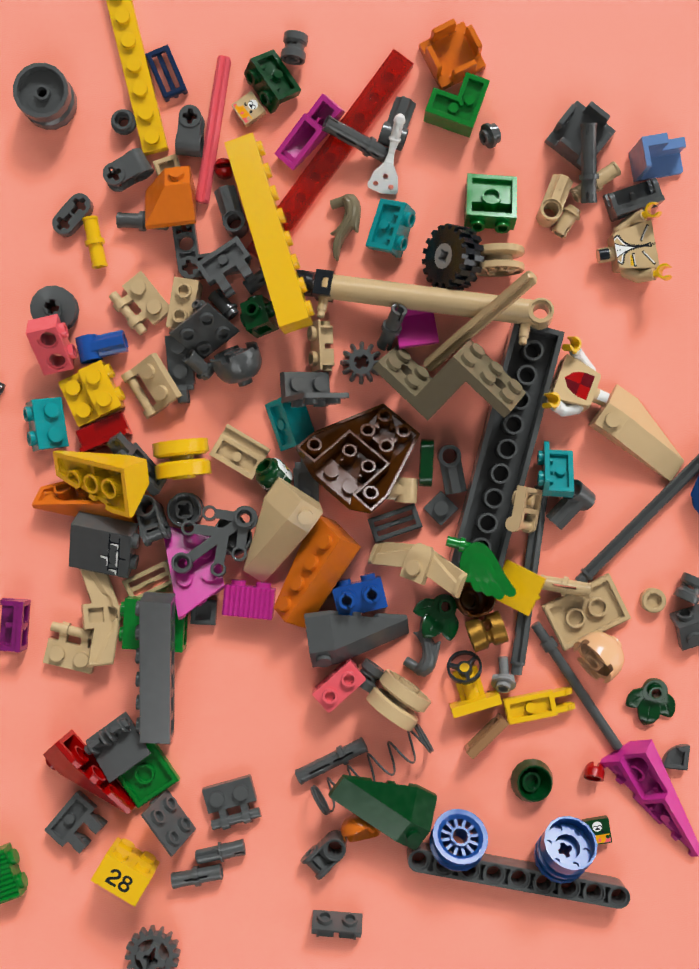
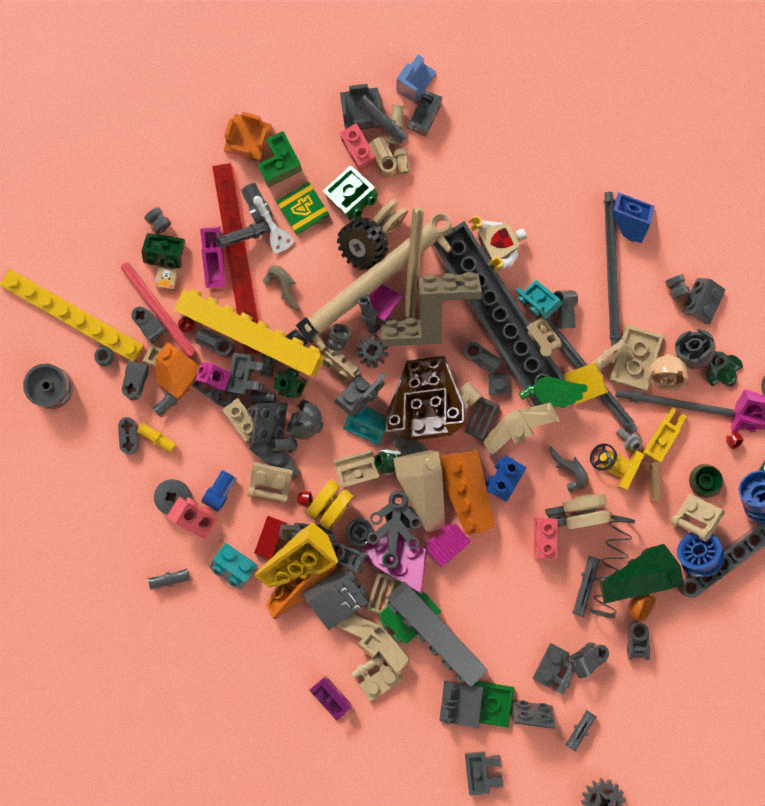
camera: 35 degrees left, 5 degrees down
(72, 762) = (450, 737): red wedge -> none
(92, 393) = (241, 522): yellow plate -> none
(125, 871) = (539, 766): yellow brick -> none
(146, 297) = (216, 438): tan plate -> none
(168, 431) = (305, 498): none -> red hinge
(175, 92) = (115, 311): dark blue tile -> none
(198, 247) = (219, 378): none -> dark pink brick
(205, 614) = (431, 579): dark grey tile -> none
(221, 852) = (579, 702): dark grey axle -> none
(262, 824) = (588, 659): none -> dark grey piece
(341, 637) = (519, 510): dark grey wedge -> none
(344, 319) = (338, 337): none -> dark grey wheel
(345, 923) = (691, 668): dark grey hinge -> none
(391, 227) = (311, 261): teal bracket -> none
(426, 462) = (464, 368): dark green beam -> none
(434, 171) = (302, 208): none -> green tile
(435, 619) = (560, 446): dark green plate -> none
(474, 603) = (571, 415): reddish brown hair -> none
(477, 630) = (594, 423): pearl gold wheel -> none
(490, 135) = (312, 158): dark grey plate -> none
(498, 804) = (700, 511): none -> tan plate
(540, 167) = (357, 147): none -> coral brick
(634, 248) = (454, 139): tan torso -> none
(635, 431) = (556, 234): tan wedge -> none
(647, 660) = (695, 348): none -> dark grey cylinder
(652, 600) = (664, 314): tan tile -> none

